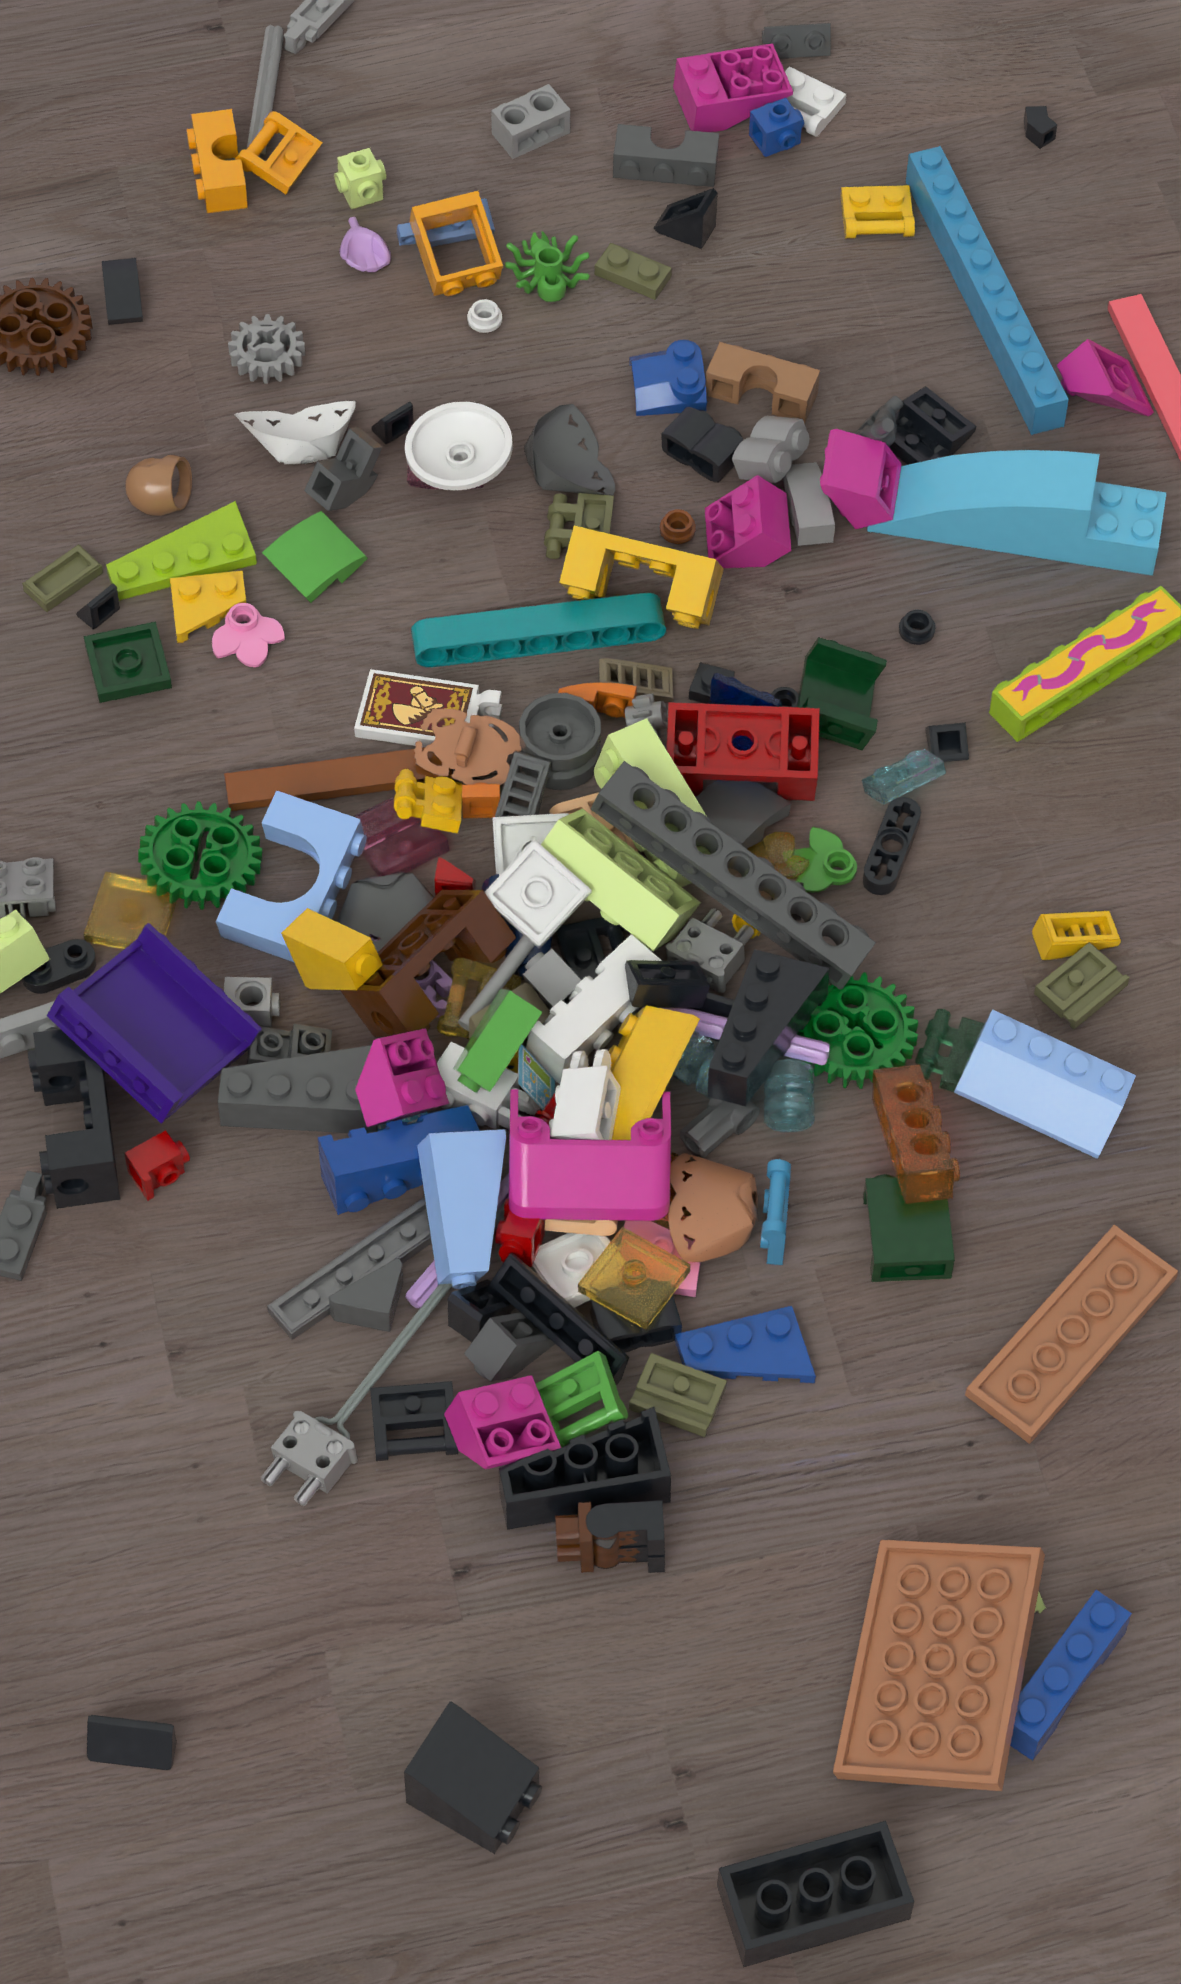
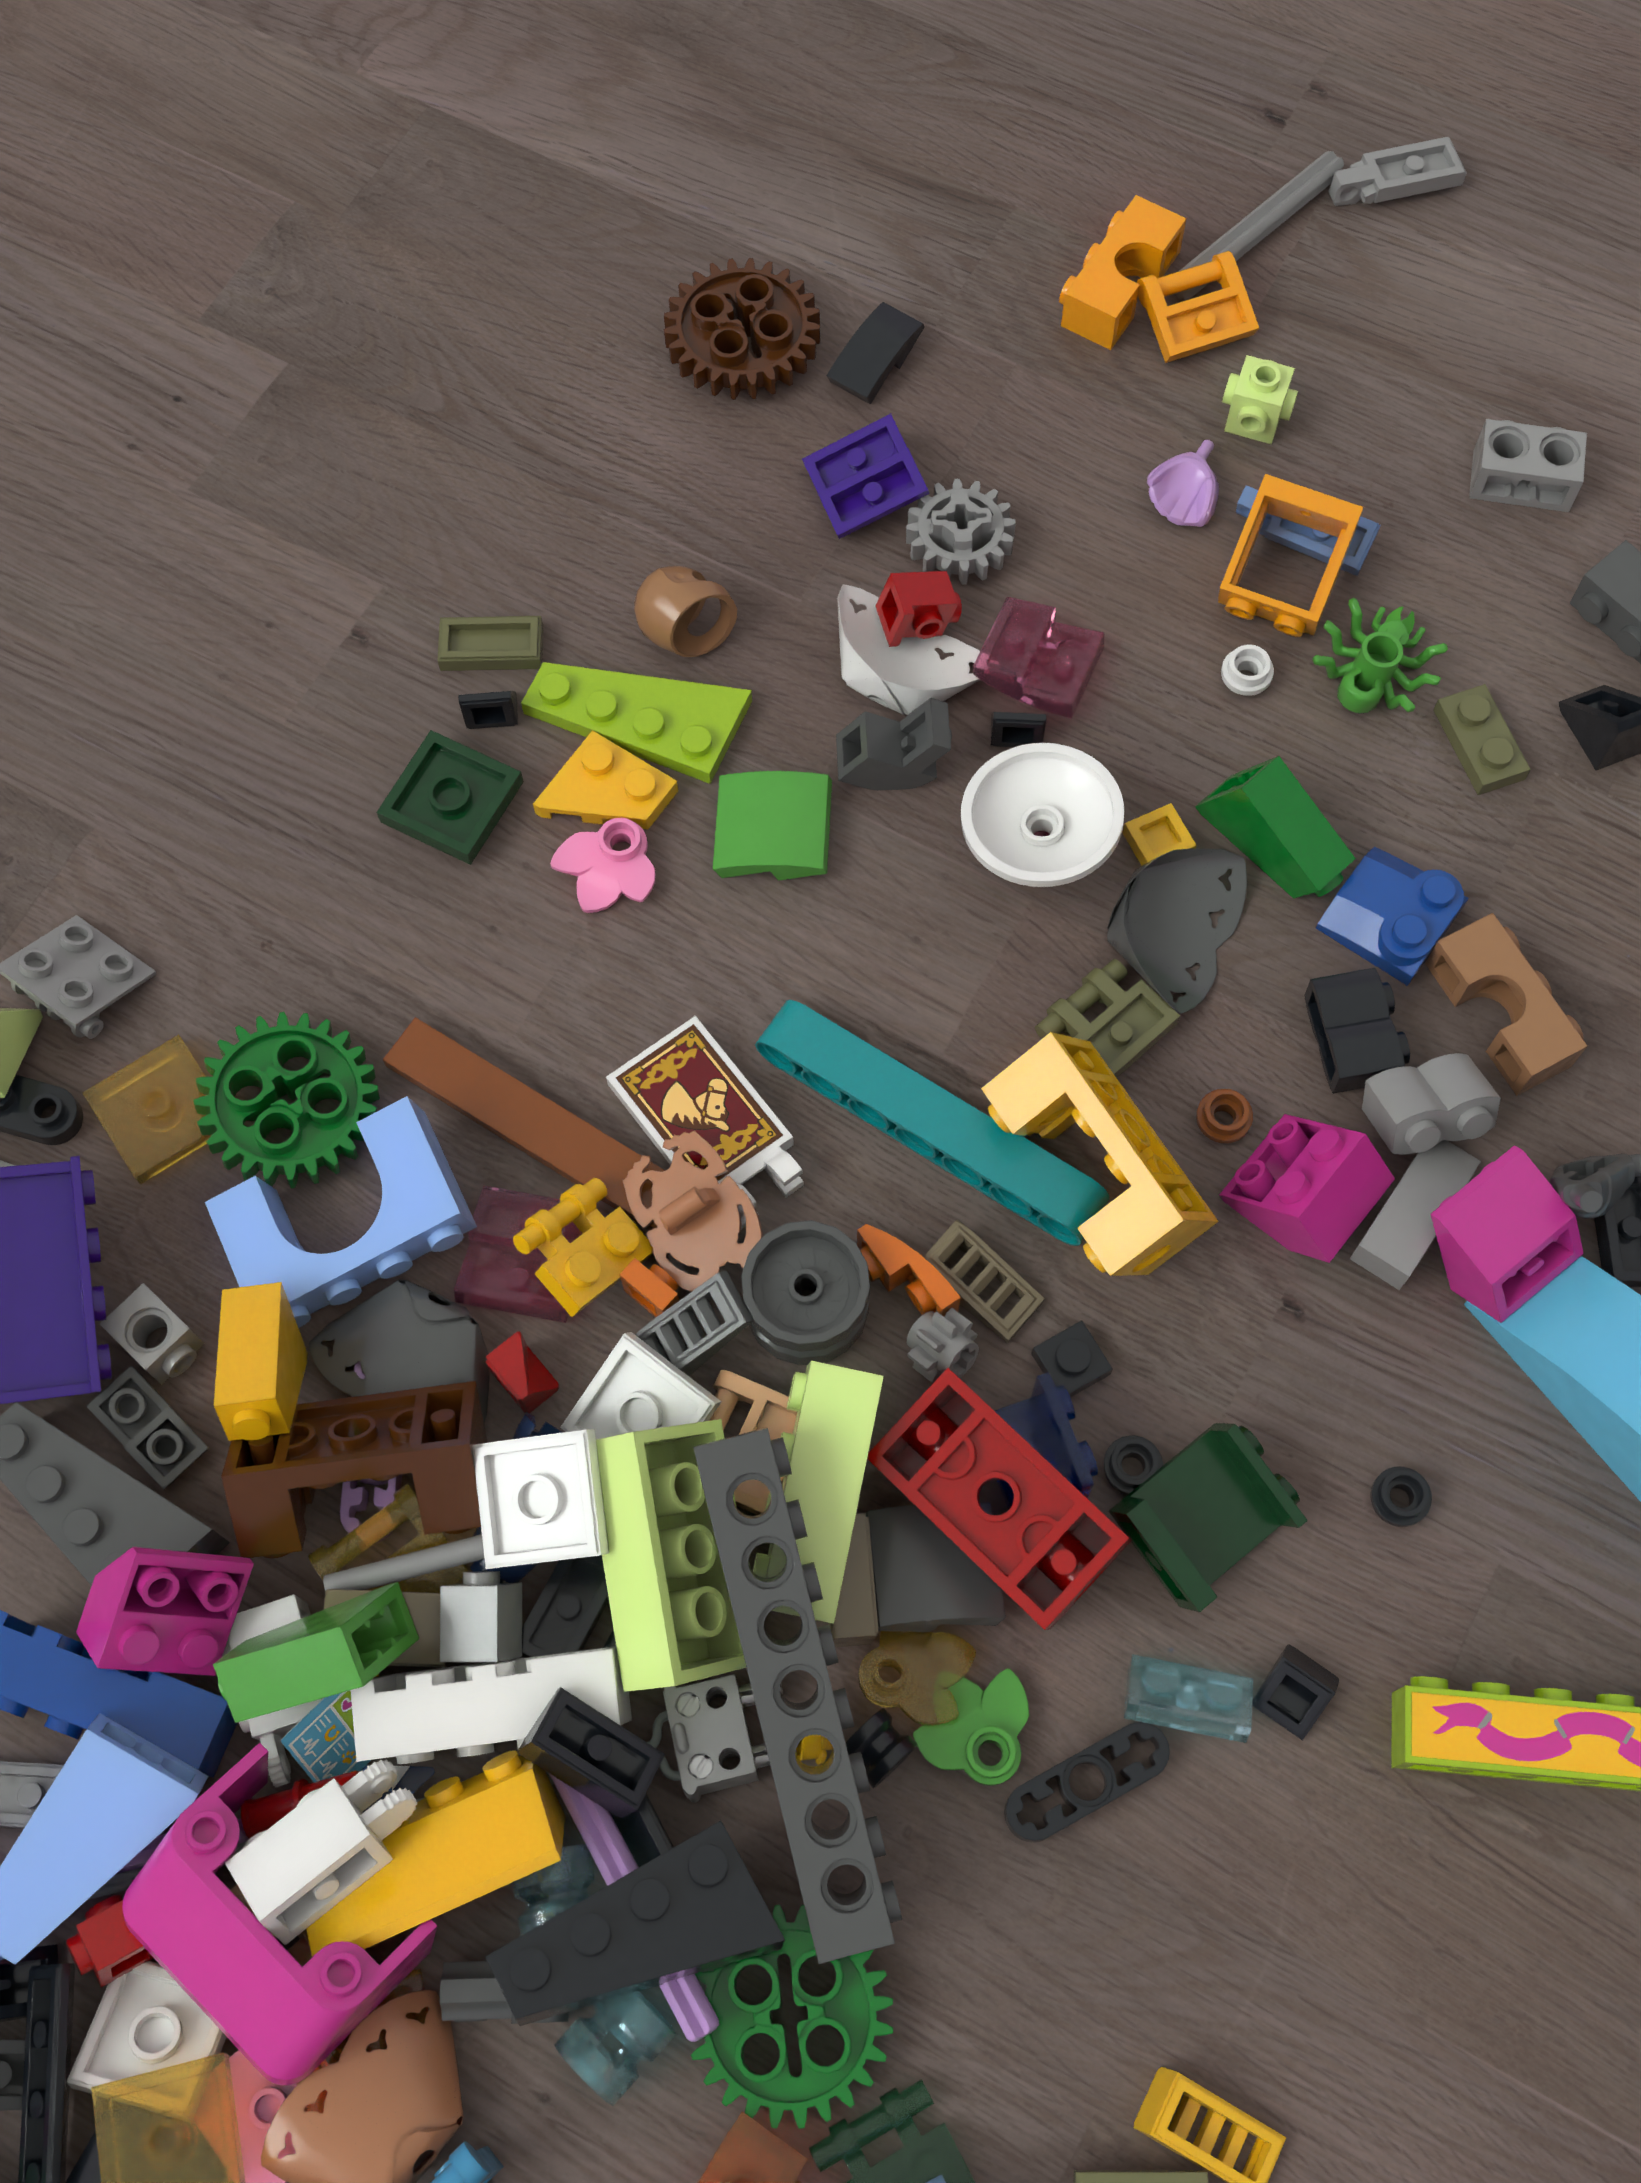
camera: 45 degrees right, 10 degrees up
(187, 355) = (865, 476): none -> dark purple slope
(284, 398) = (917, 605): none -> red brick
(372, 382) = (1038, 658): none -> clear pink slope
(520, 423) = (1157, 834): none -> yellow tile
(576, 376) = (1278, 828): none -> green slope

